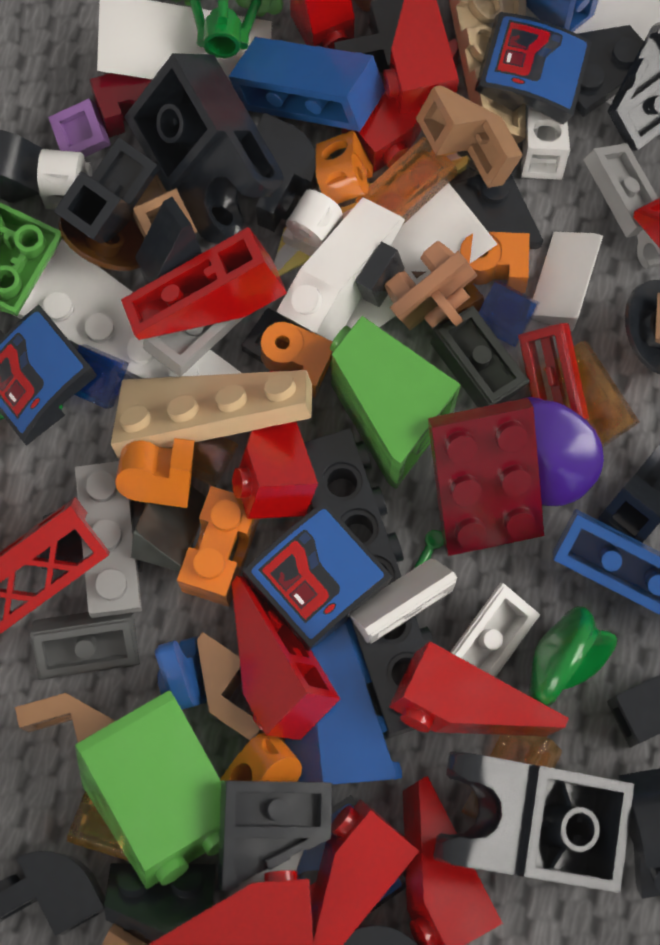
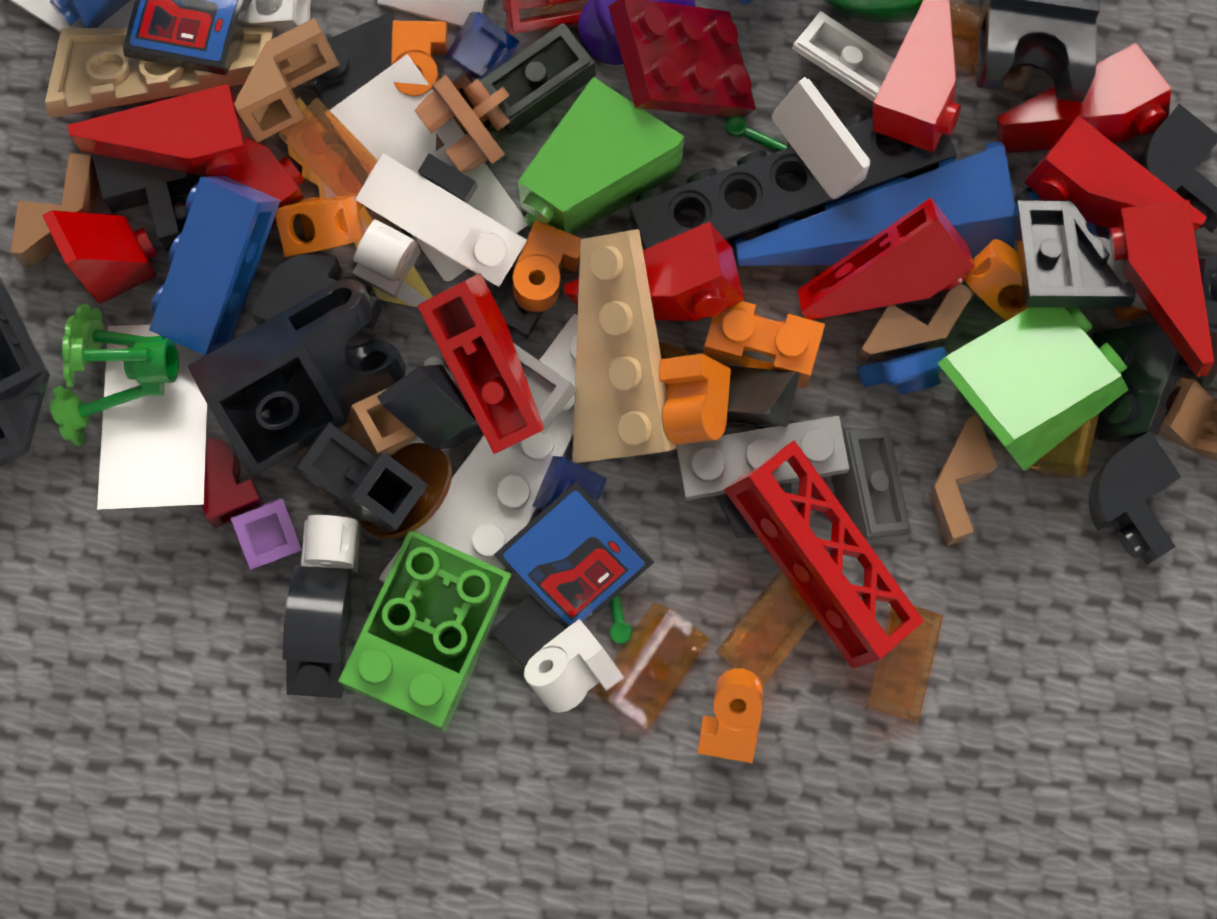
camera: 90 degrees left, 5 degrees up
(316, 575) = (799, 229): slope -> none

